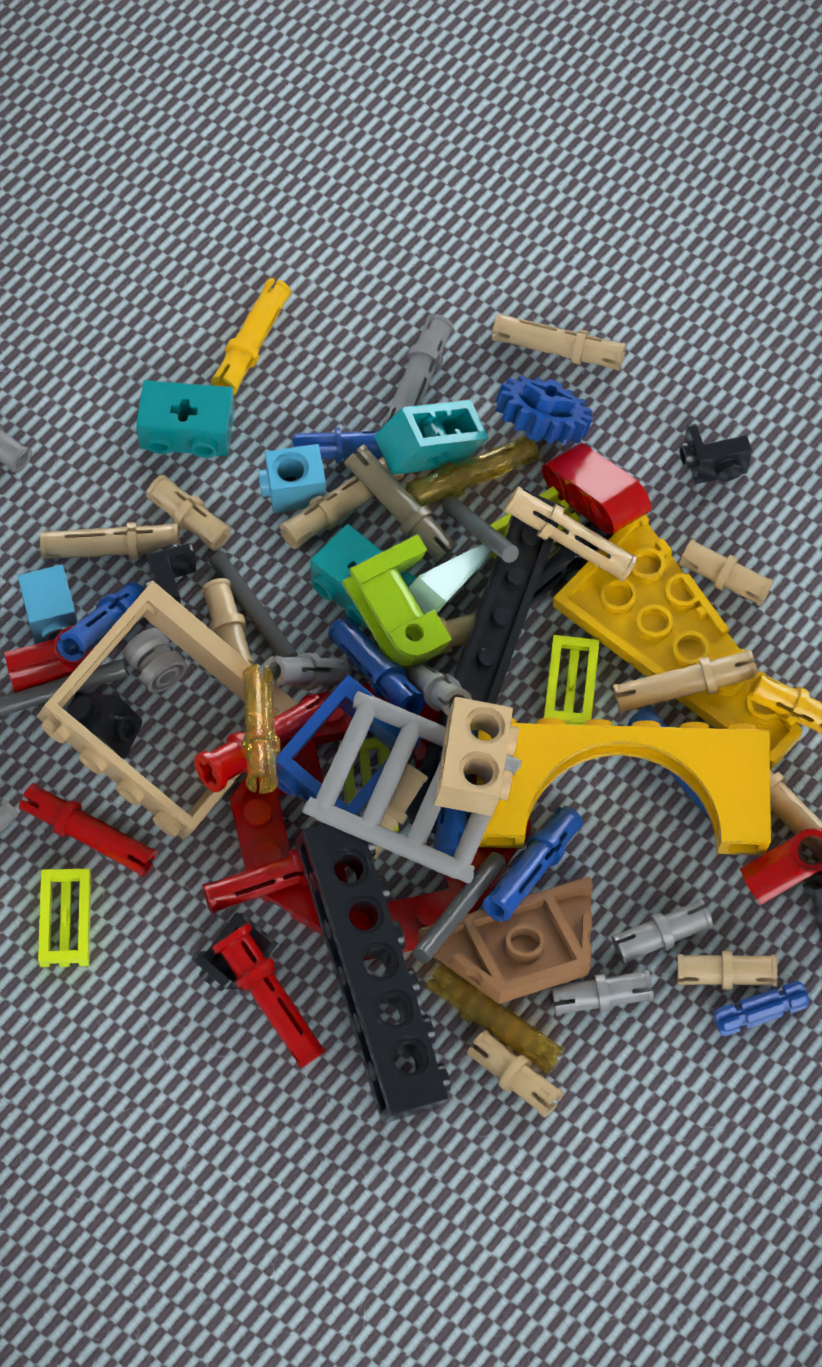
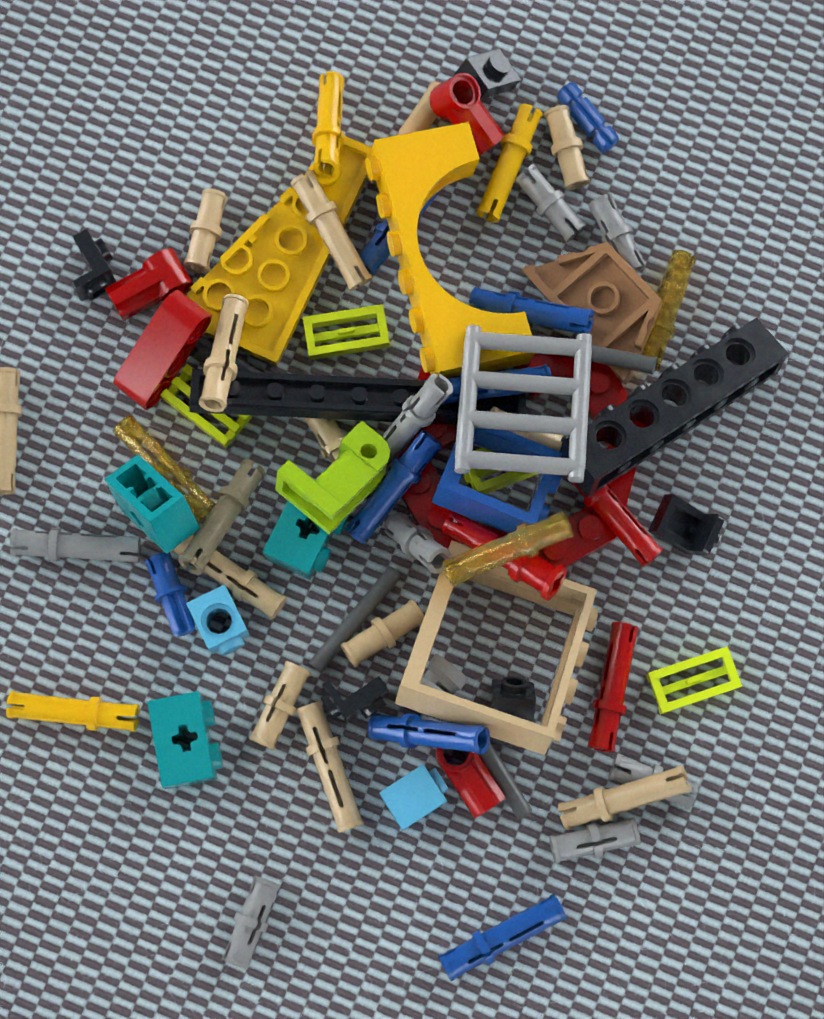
camera: 110 degrees left, 15 degrees up
(257, 975) = (706, 495): red pin -> none
(441, 583) = (283, 444): light aqua slope -> none
(469, 755) = (495, 362): tan brick -> none
(480, 529) = (234, 435): dark grey bar -> none
(515, 1073) = (706, 282): tan pin -> none
(543, 410) = (90, 418): blue gear -> none
(679, 510) = (149, 285): none -> red piece
(739, 912) = (515, 147): none -> yellow pin

